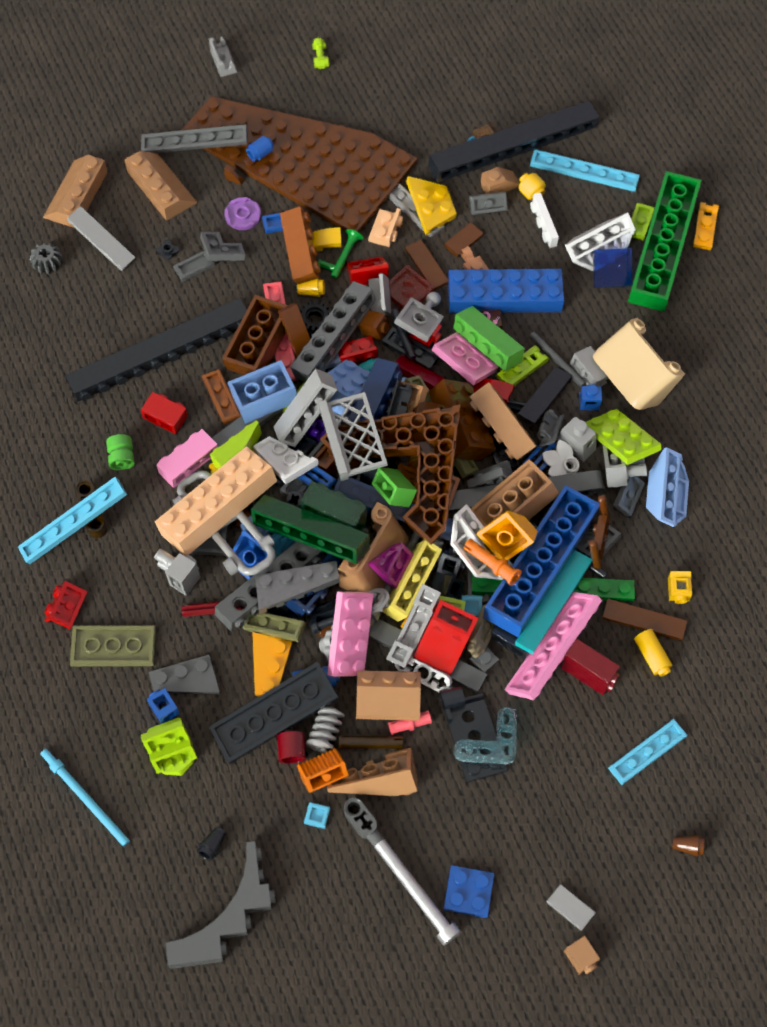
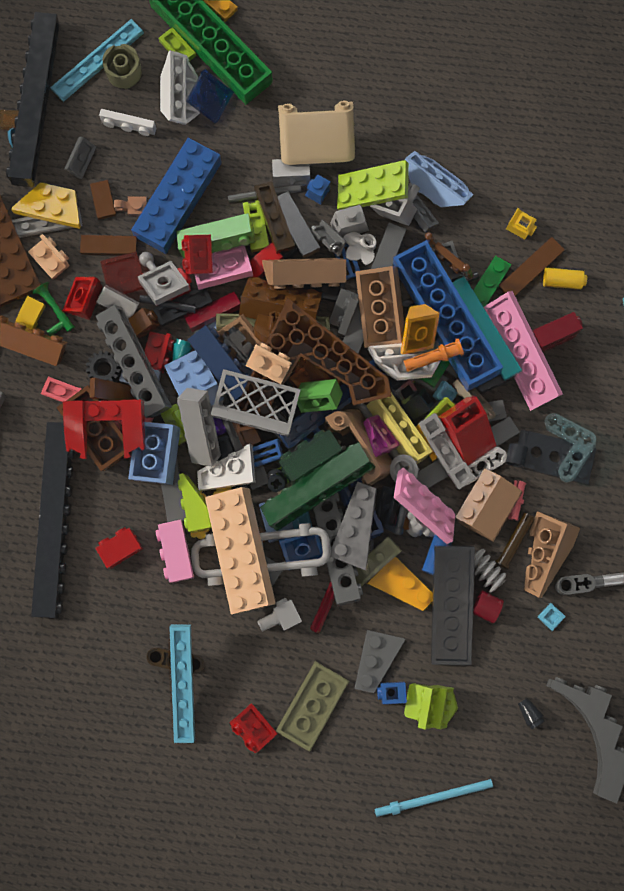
camera: 60 degrees left, 15 degrees up
(120, 452) = (134, 606): bright green wheel -> none
(221, 396) = (130, 490): dark orange tile -> none
(283, 347) = (128, 411): none -> red wedge
(312, 288) = (71, 354): yellow cone -> none
(322, 770) = (520, 592): orange brick -> none
(393, 425) = (268, 363): none -> light nougat bracket
(460, 329) = (197, 254): none -> red bracket
(494, 316) = (194, 220): reddish brown tile -> none
(499, 180) = (64, 136): medium nougat slope -> none
(531, 184) = (87, 111): yellow head -> none
(537, 374) = (274, 217): none -> dark brown plate
(590, 188) = (122, 66): none -> olive brick

